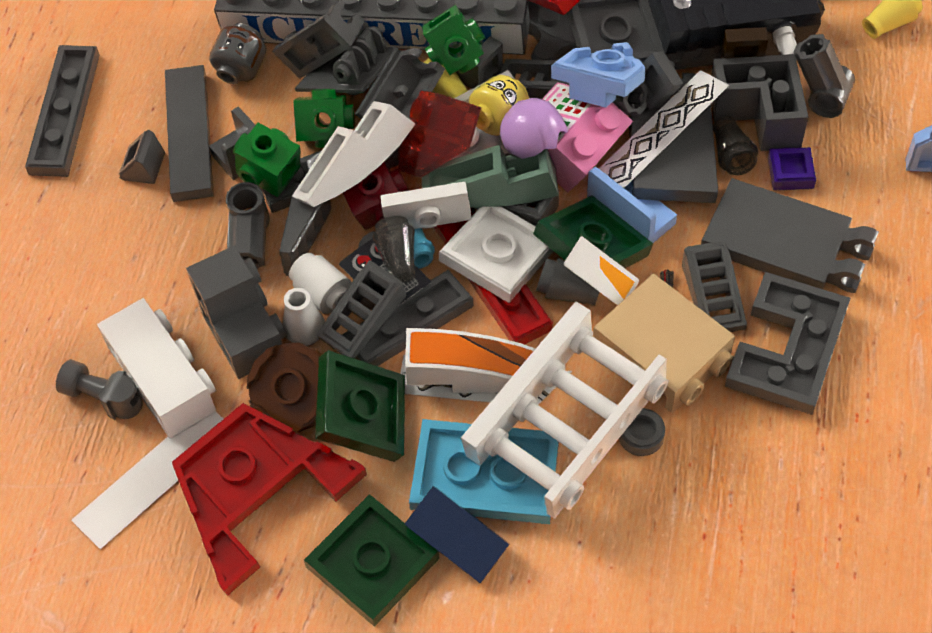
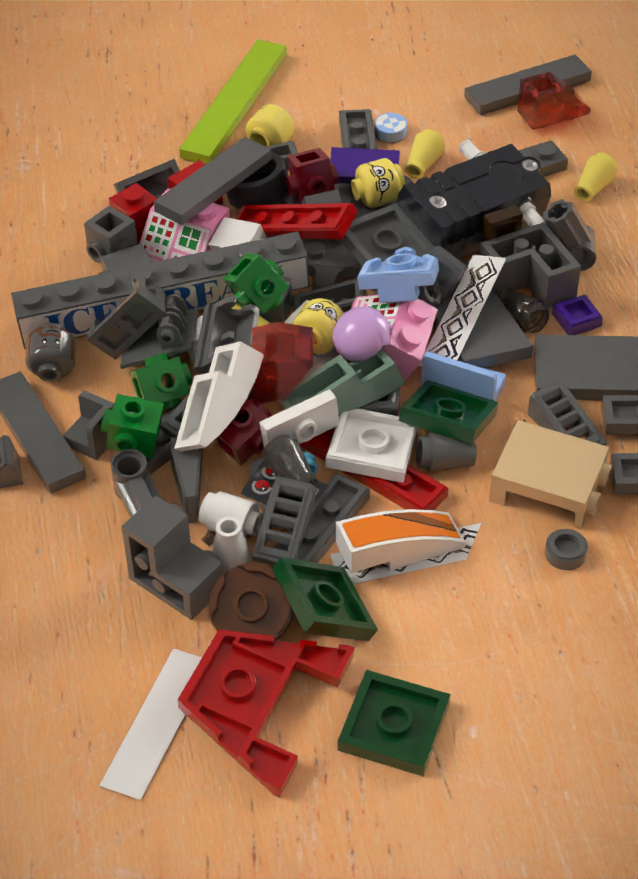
camera: 25 degrees left, 10 degrees down
(117, 394) = (90, 664): dark grey leg -> none
(159, 366) = (118, 628): white brick -> none
(457, 534) = (461, 673): dark blue tile -> none
(486, 490) = (455, 619): medium azure plate -> none
(547, 368) = (466, 549): white fence -> none
(601, 271) = (476, 430): white sticker -> none

